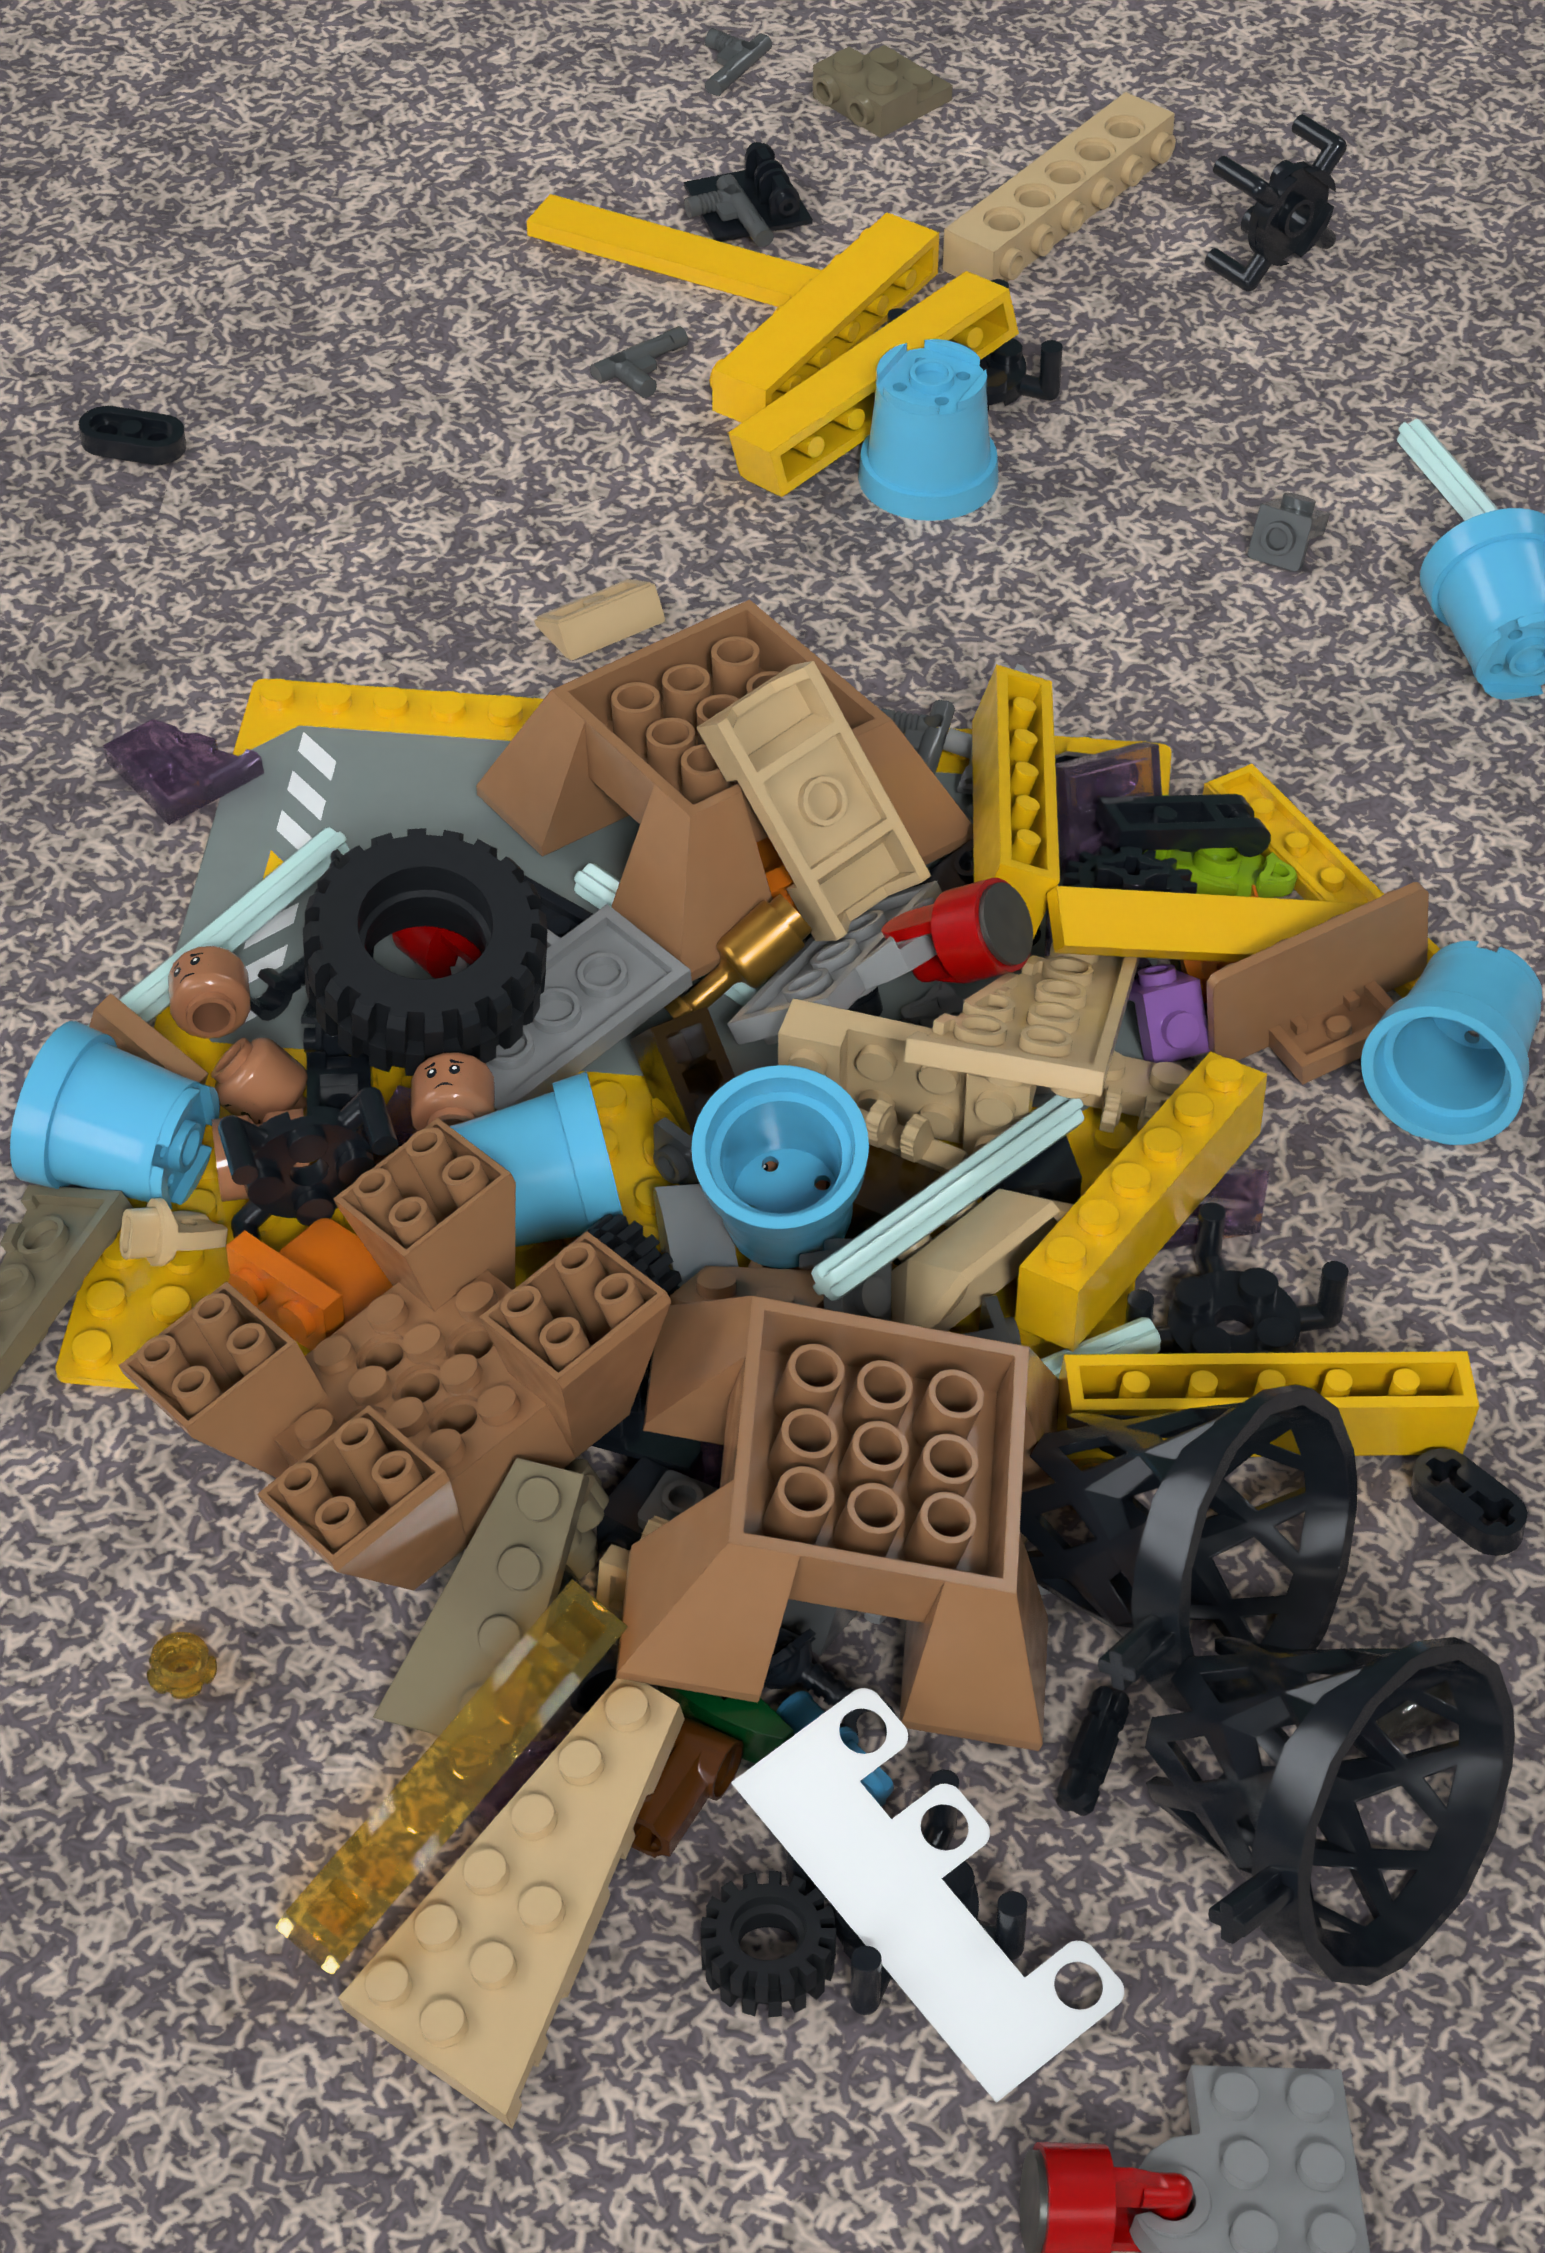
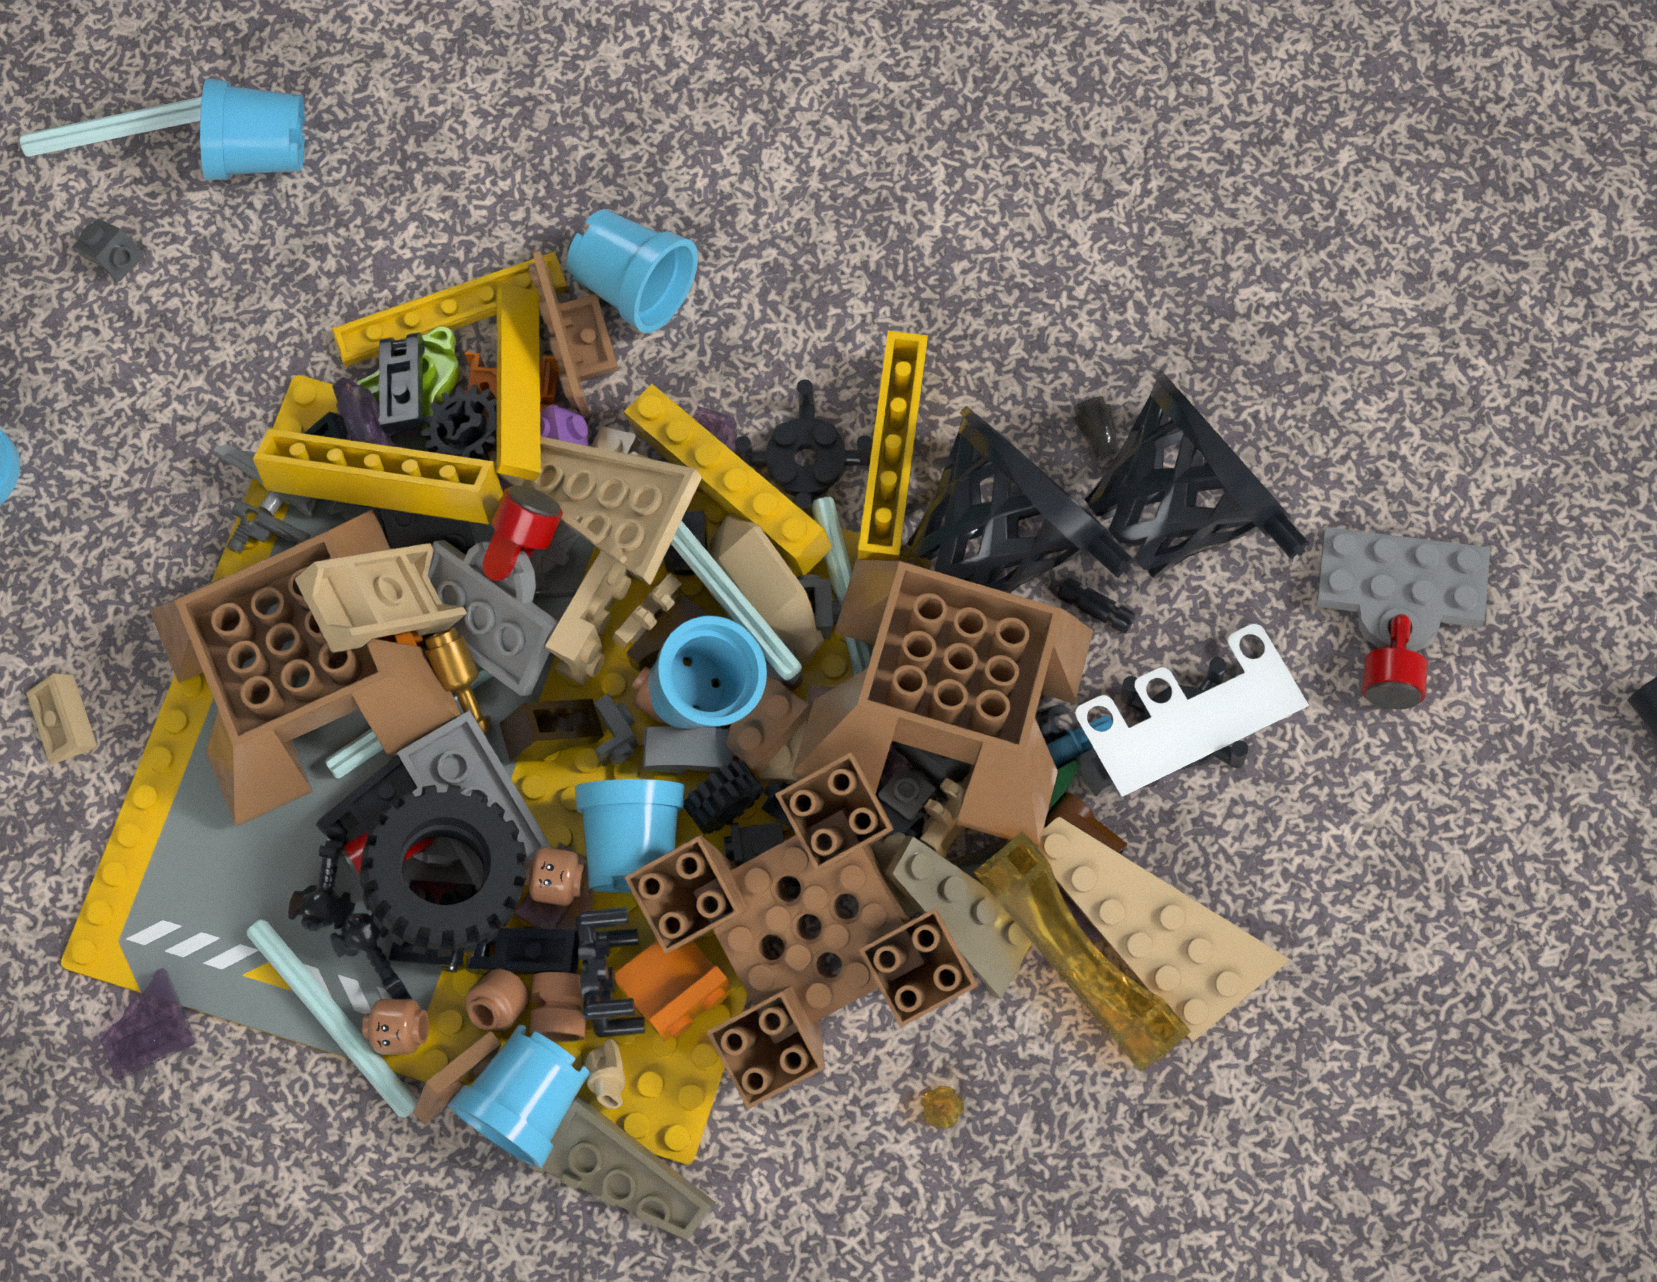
camera: 70 degrees left, 25 degrees up
(768, 1980) = (1198, 778): black tyre -> none
(1468, 1501) = (958, 356): black beam -> none

